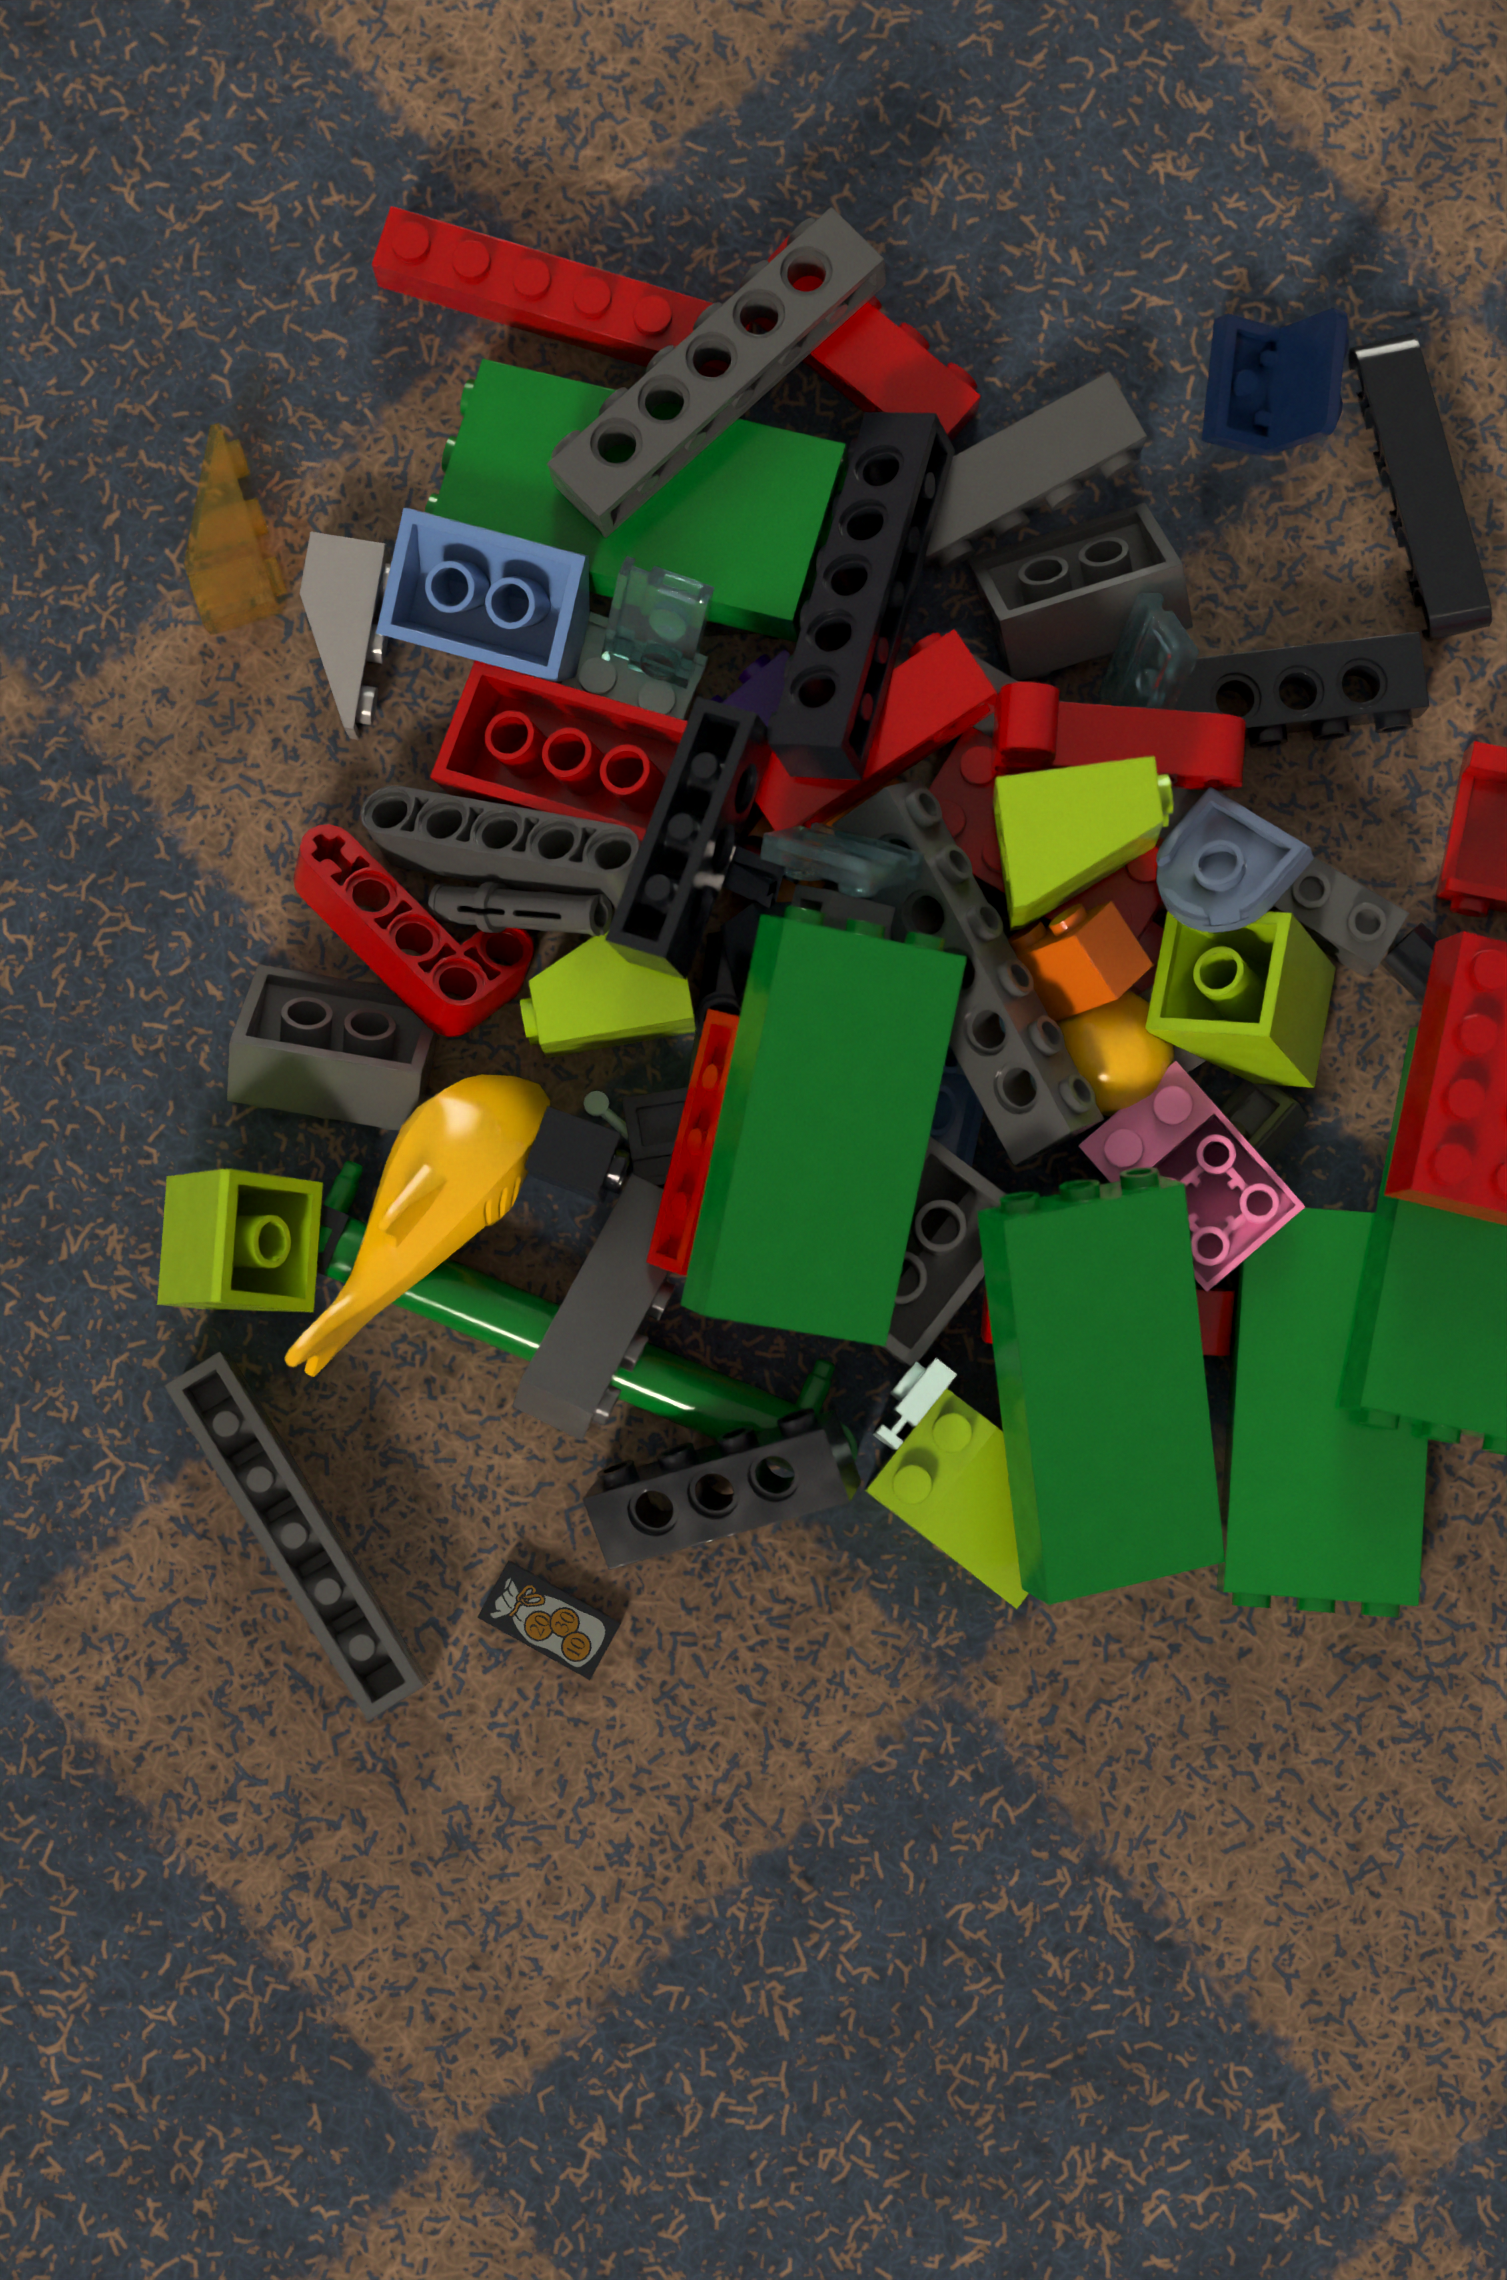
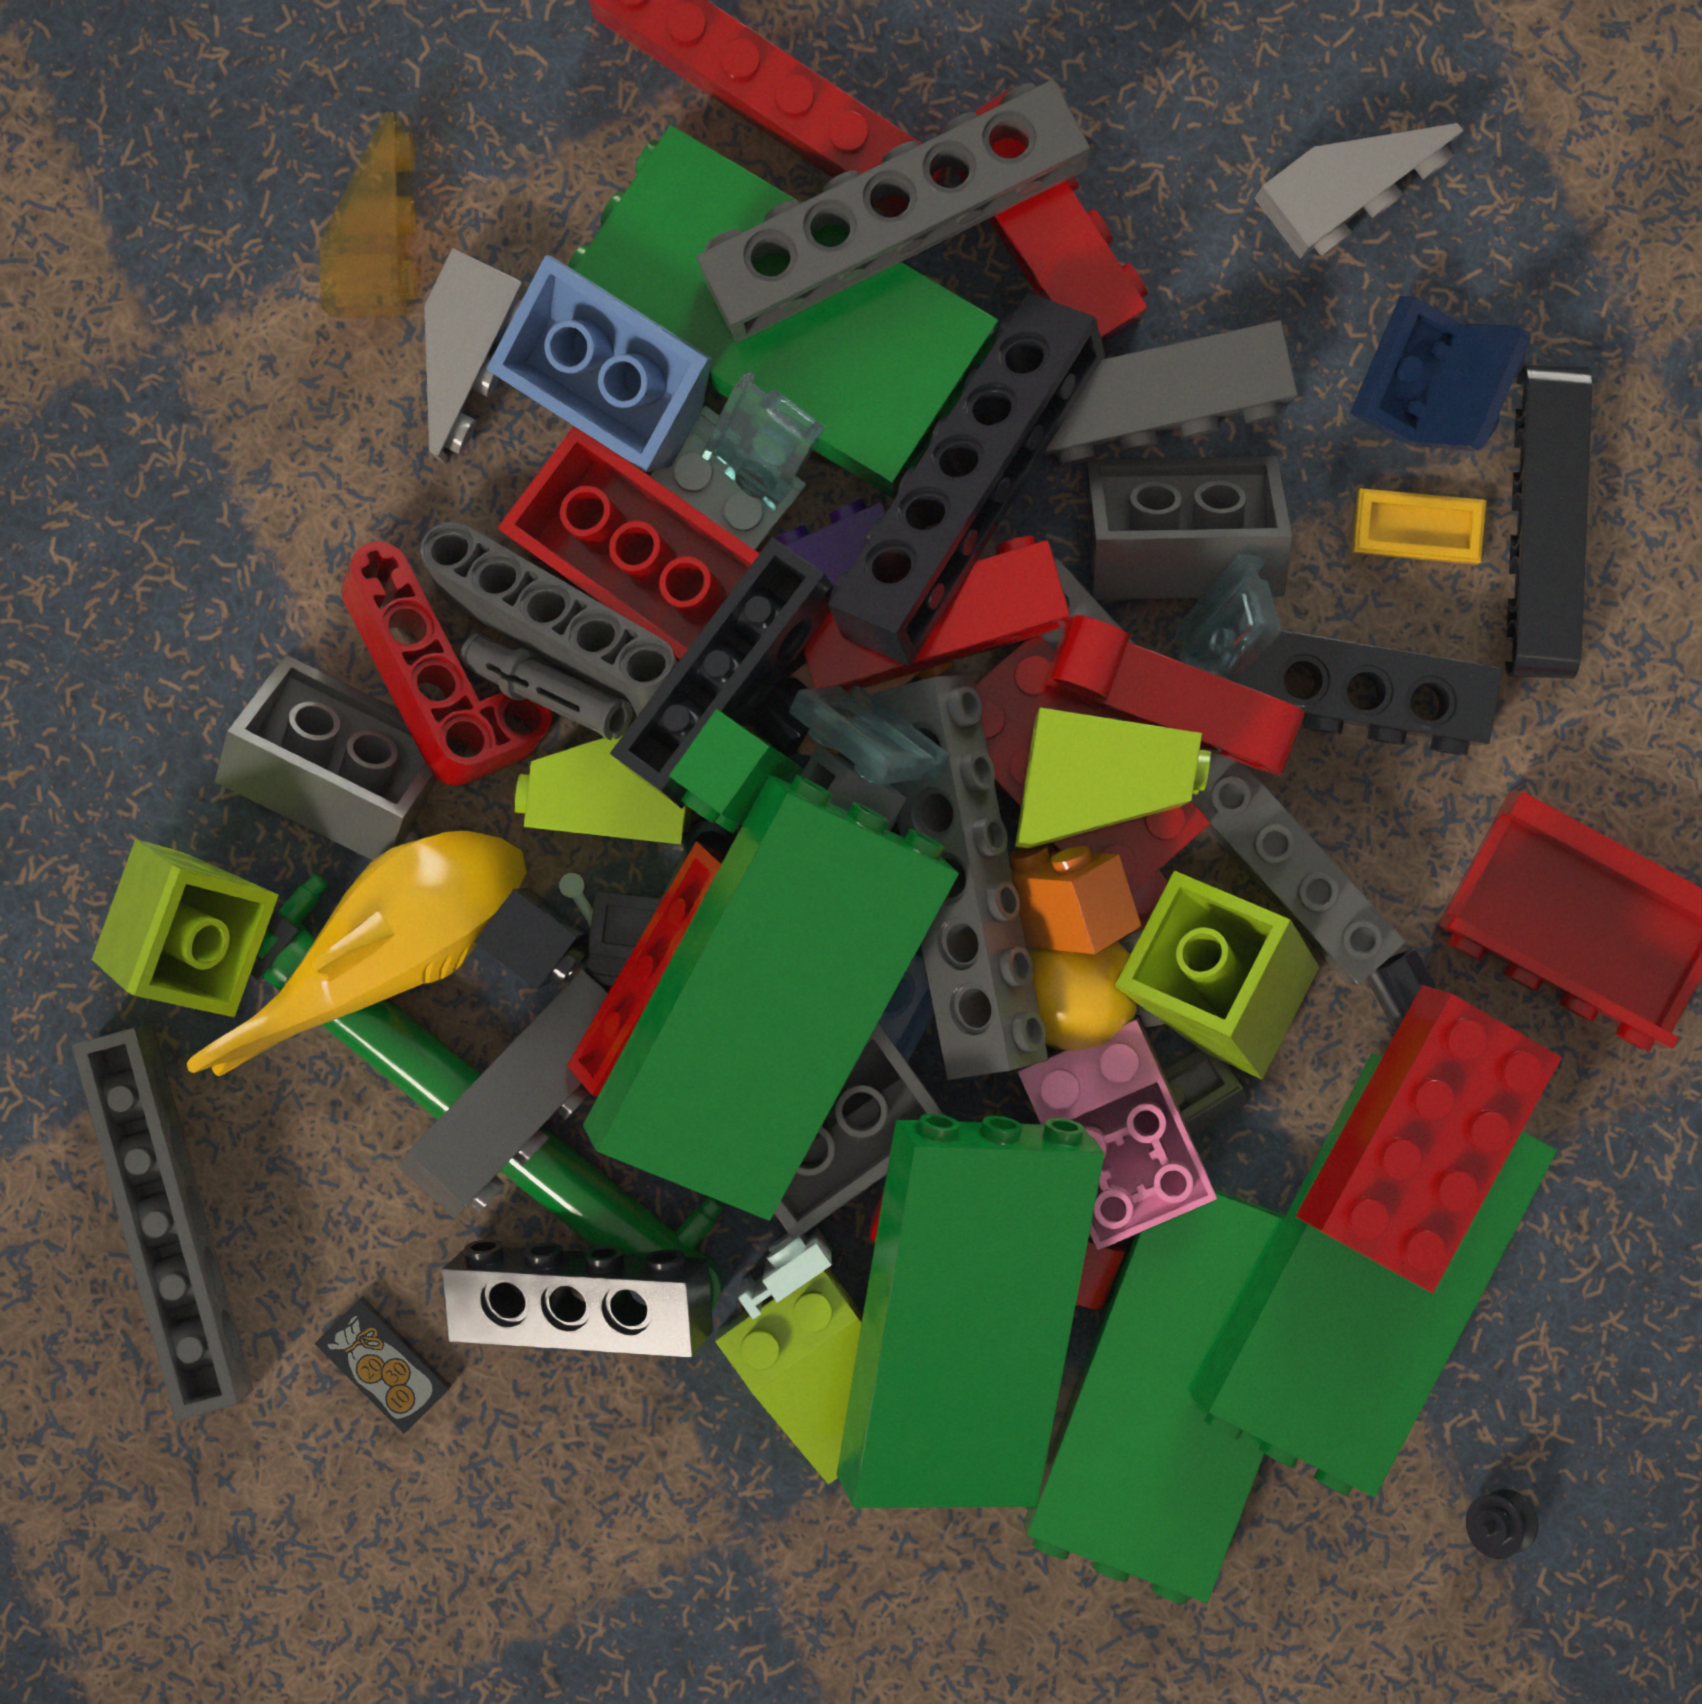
camera: 15 degrees right, 5 degrees up
(721, 924) = (727, 771): none -> green brick
(1115, 235) = (1334, 181): none -> light grey slope
(1226, 865) = (1241, 849): sand blue tile -> none
(1299, 528) = (1418, 526): none -> yellow tile

